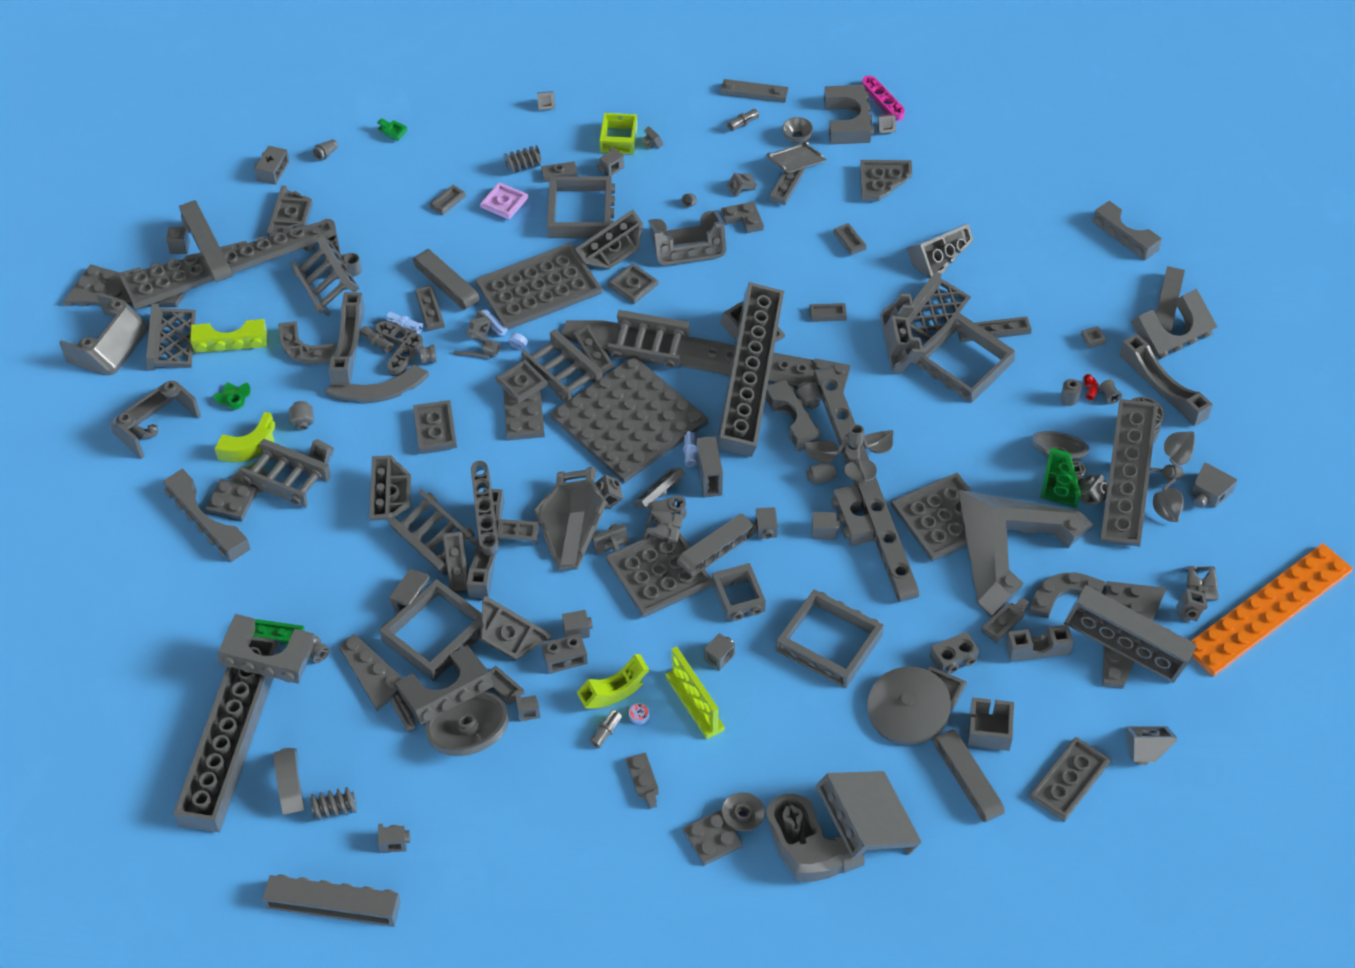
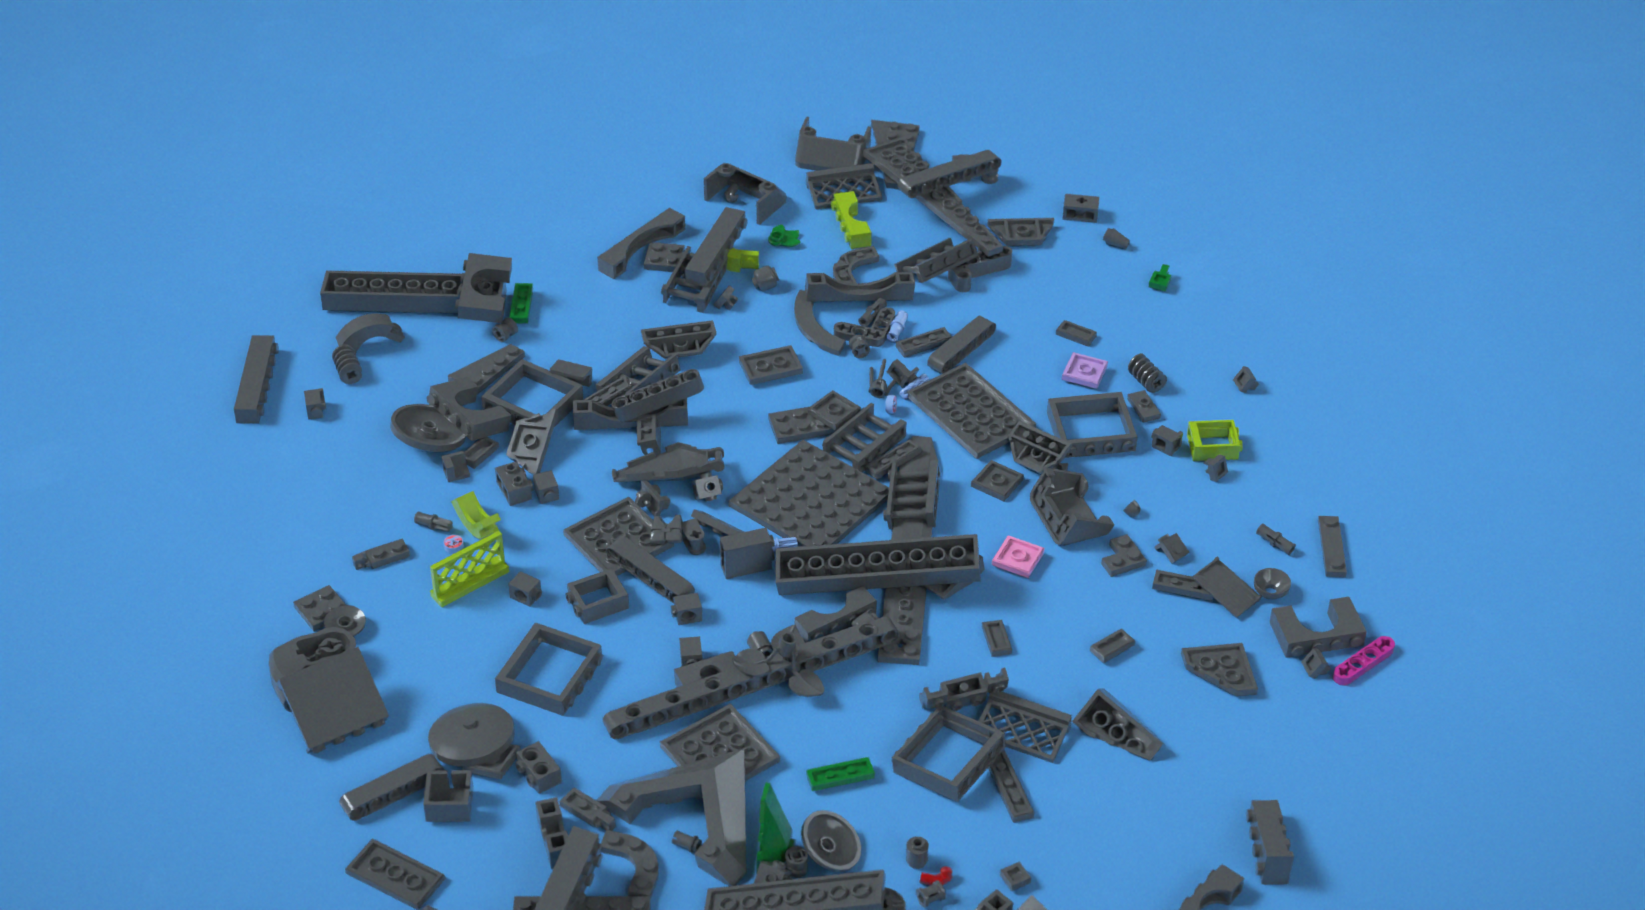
camera: 80 degrees right, 10 degrees down
(255, 441) = (715, 247): none -> dark grey brick
(734, 281) = (1018, 556): none -> bright pink plate
(977, 435) = (840, 774): none -> green plate
(1045, 550) = (687, 841): none -> dark grey pin
(1069, 181) = (1270, 842): none -> dark grey wedge

